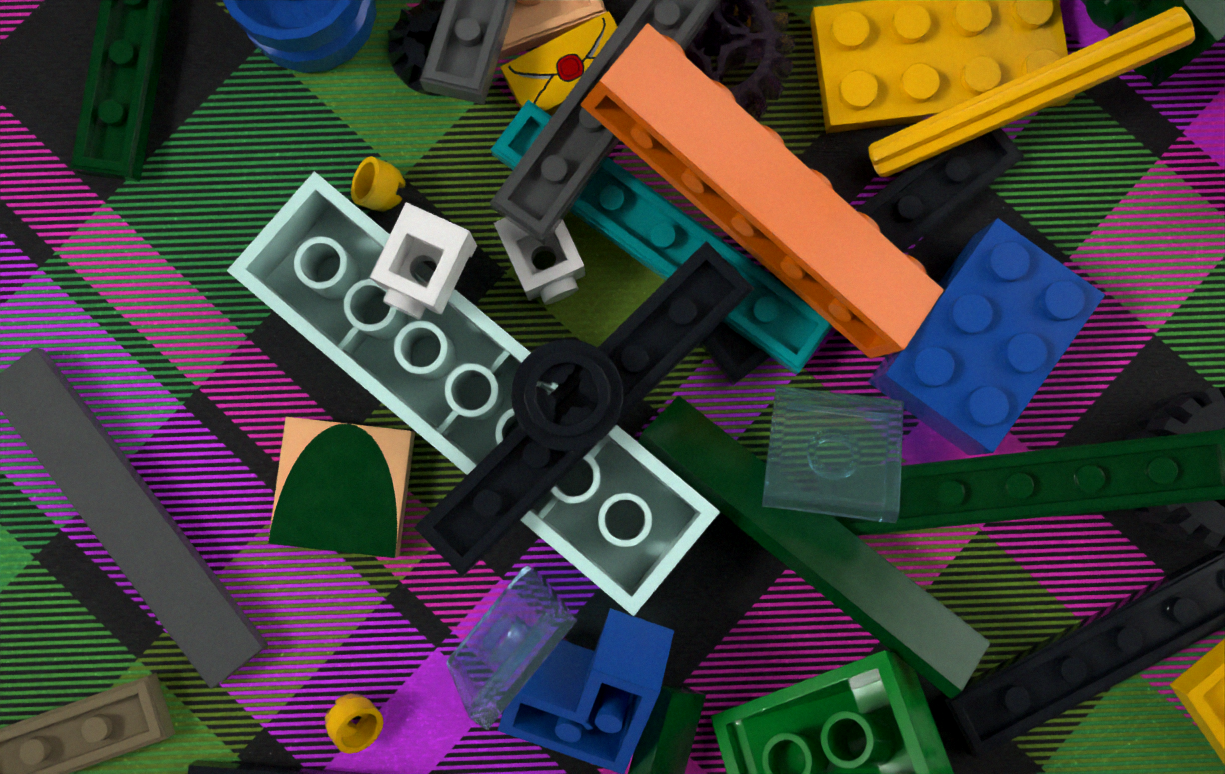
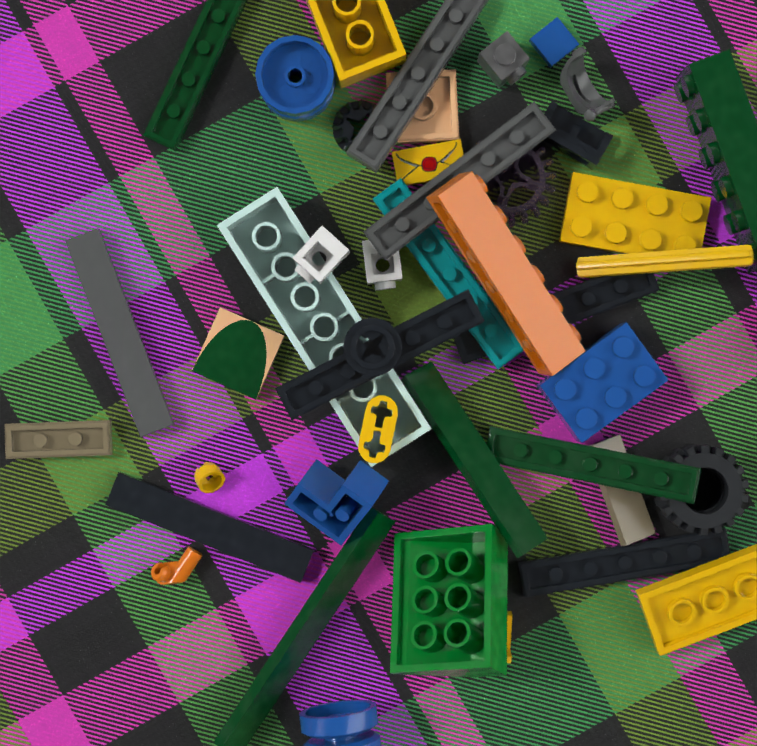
camera: 15 degrees right, 5 degrees up
(376, 185) = (298, 193): yellow hinge -> none
(508, 645) = (302, 461): clear light blue tile -> none
(642, 542) = (387, 429): none -> yellow beam
(835, 454) = (501, 417): clear light blue tile -> none
(1095, 541) = (625, 506): none -> dark tan tile

